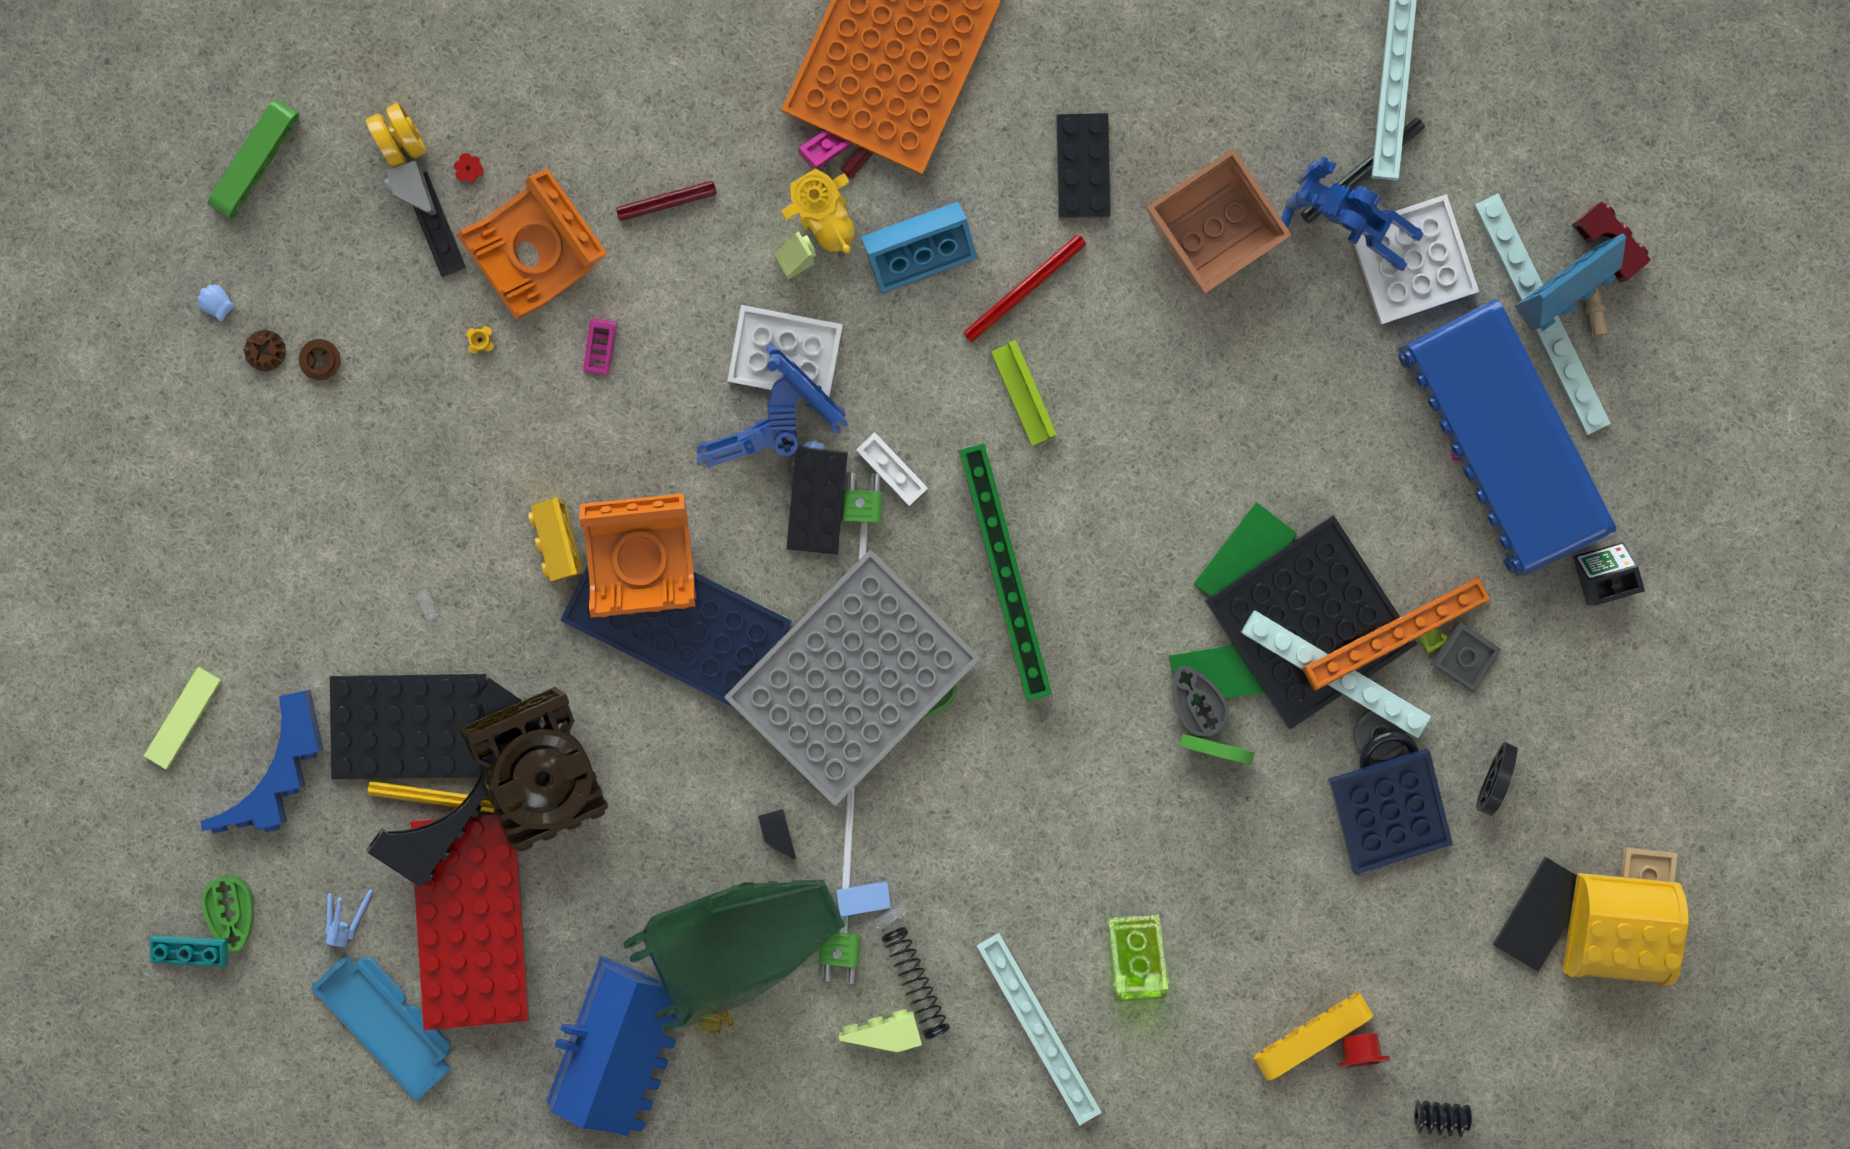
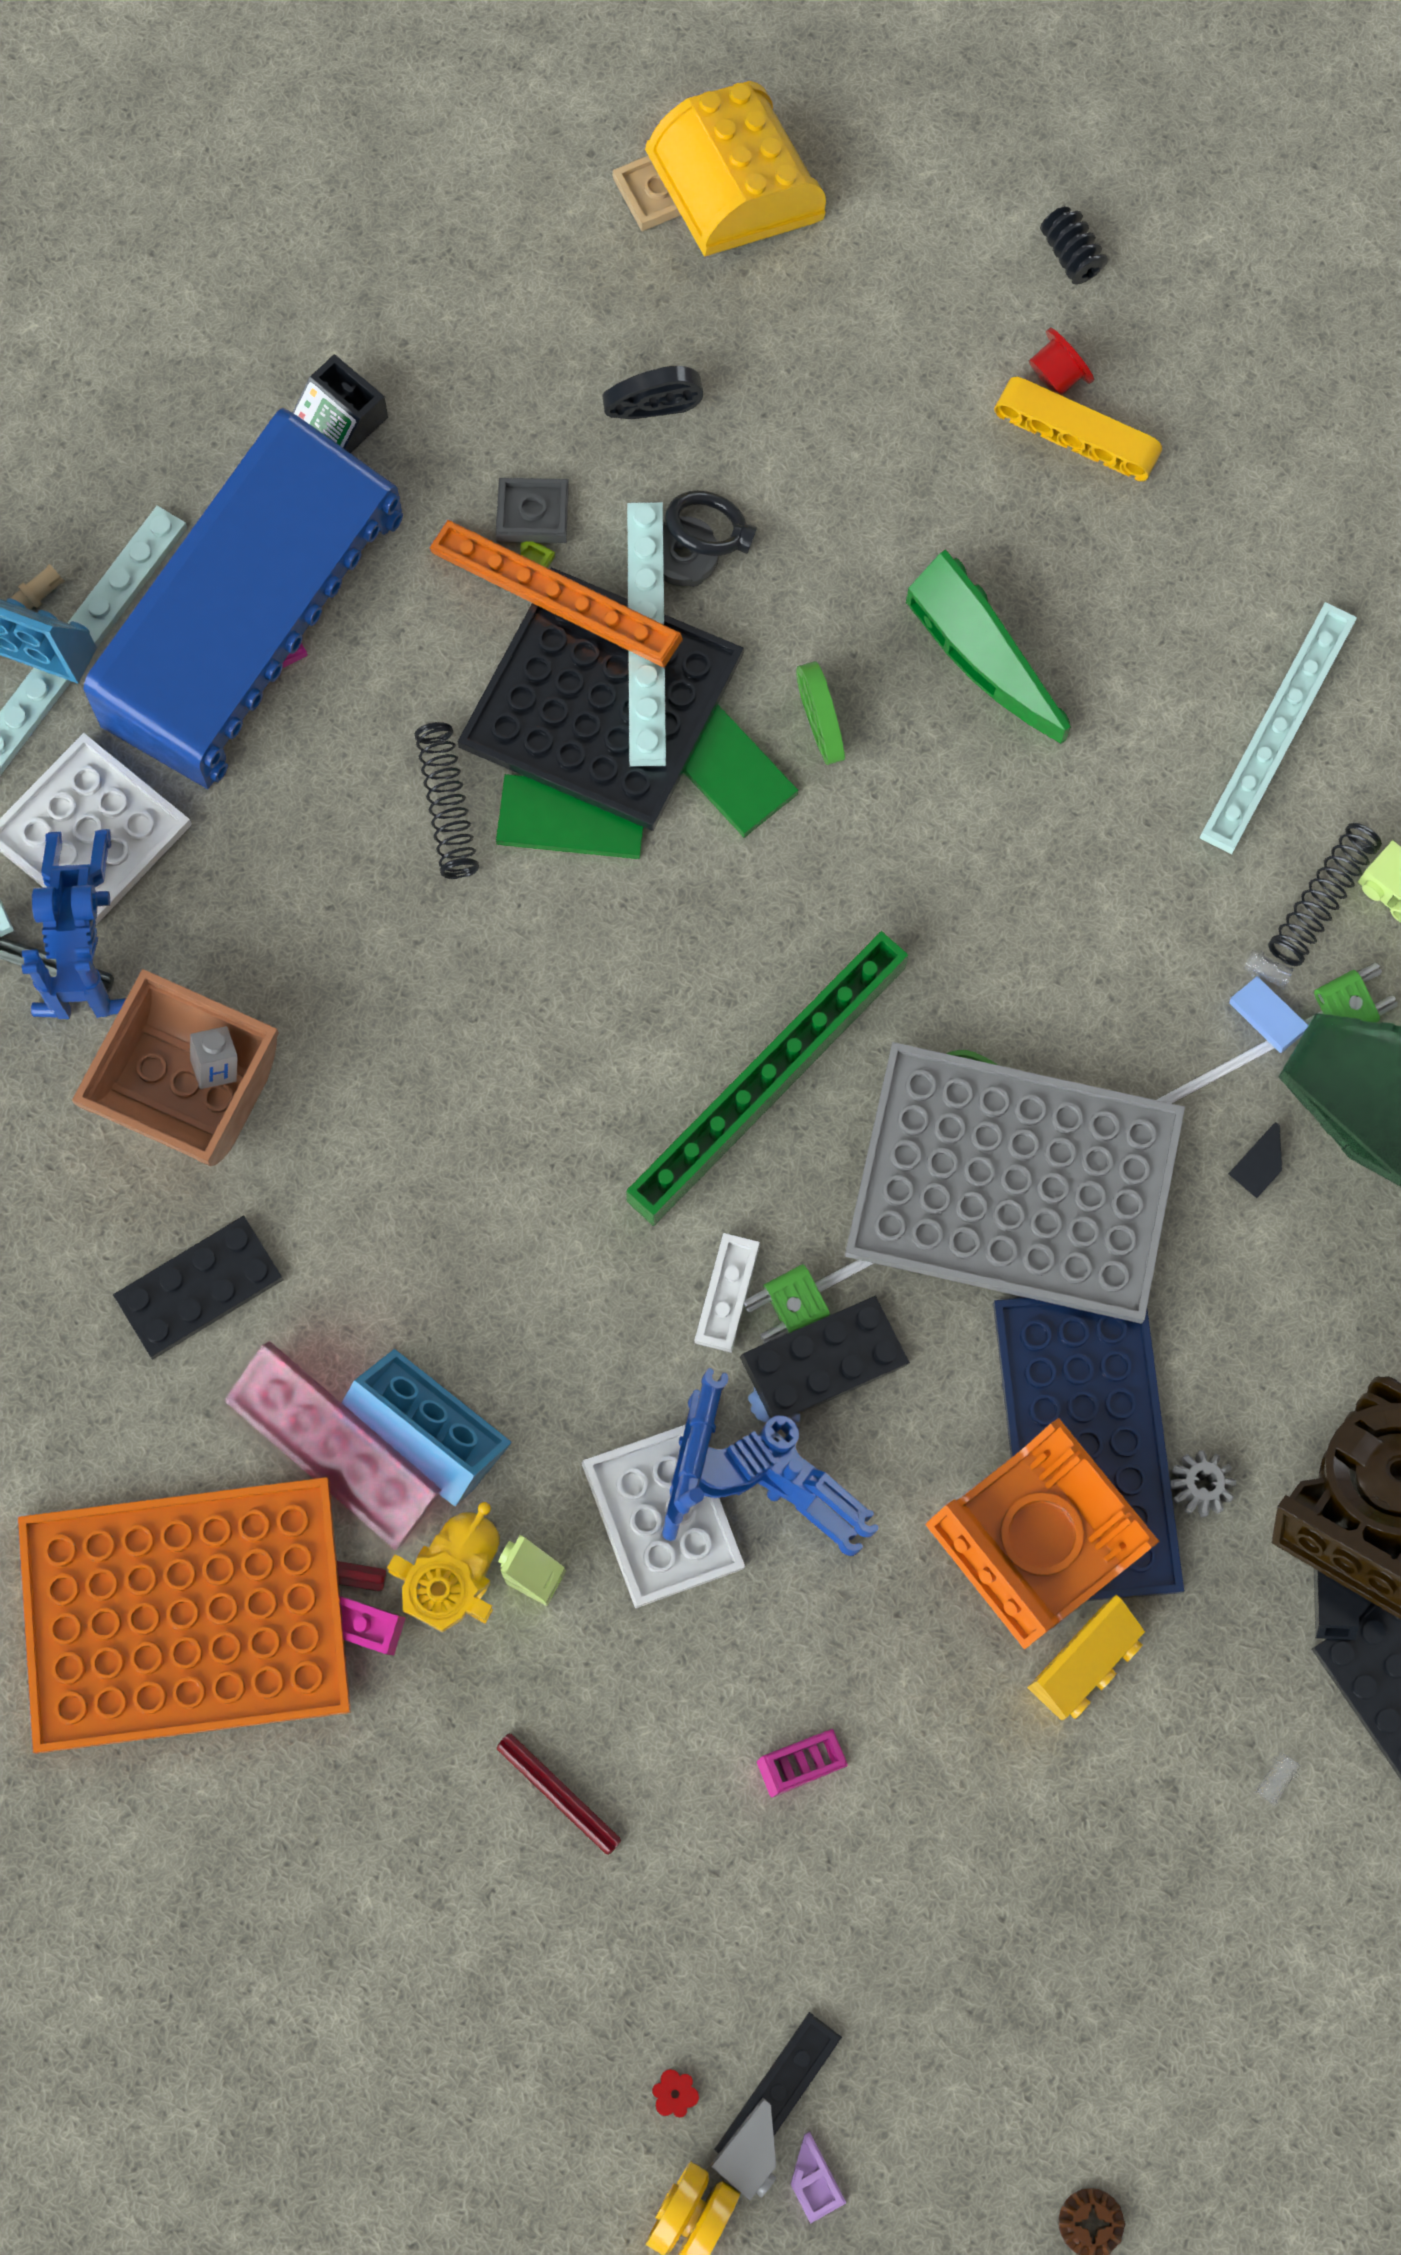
camera: 125 degrees left, 15 degrees down
(307, 359) = (1068, 2152): reddish brown gear -> none
(376, 215) = (814, 2182): none -> lavender tile
(474, 334) = (892, 1942): yellow plate -> none
(553, 226) = (683, 1926): orange panel -> none
(607, 664) = (1203, 1469): none -> light grey gear
(939, 187) = (333, 1444): none -> clear pink plate
(1023, 393) = (531, 1188): lime fence -> none
(1024, 288) = (398, 1266): red axle -> none
(1137, 958) = (1122, 665): clear neon green slope -> none
(1202, 877) = (980, 645): none -> wedge
(1212, 698) = (797, 772): dark grey piece -> none
(1213, 248) = (213, 1057): none -> light grey brick
(1350, 503) = (441, 726): none -> black piece
(1390, 811) = (766, 486): dark blue plate -> none
(1539, 915) = (777, 274): black tile -> none

